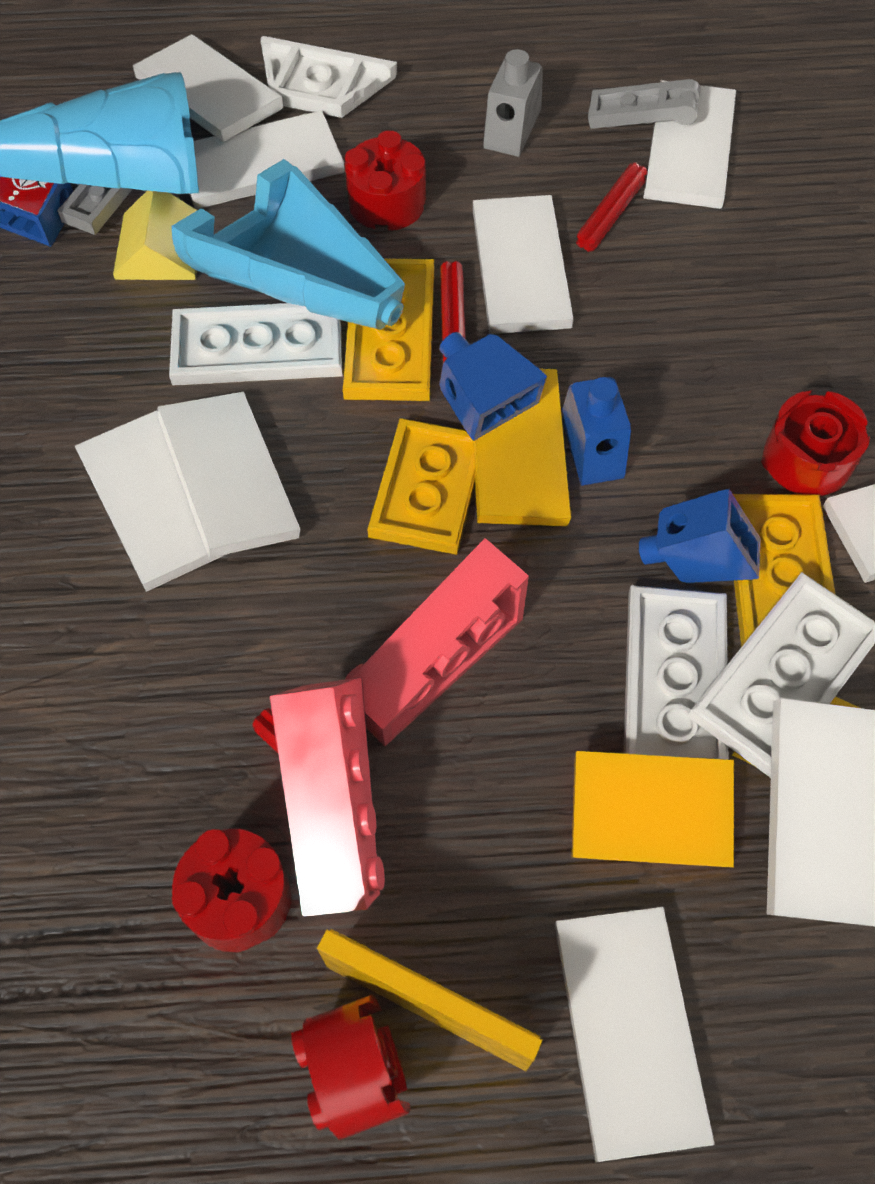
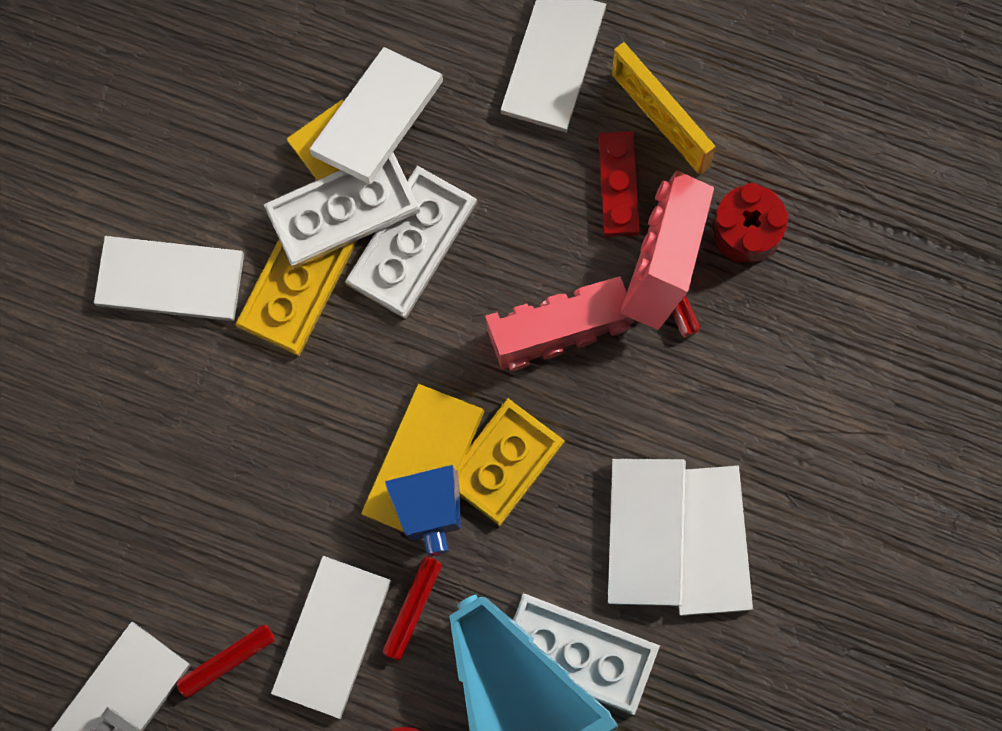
camera: 150 degrees left, 15 degrees up
(351, 1069) = (717, 95): red brick -> none
(396, 359) = (473, 573): yellow tile -> none
(446, 880) = (618, 184): none -> red plate
(593, 415) = (364, 442): blue torso -> none
(653, 809) = (475, 165): yellow tile -> none
(705, 540) = (345, 312): blue torso -> none
(816, 443) = (199, 349): red brick -> none

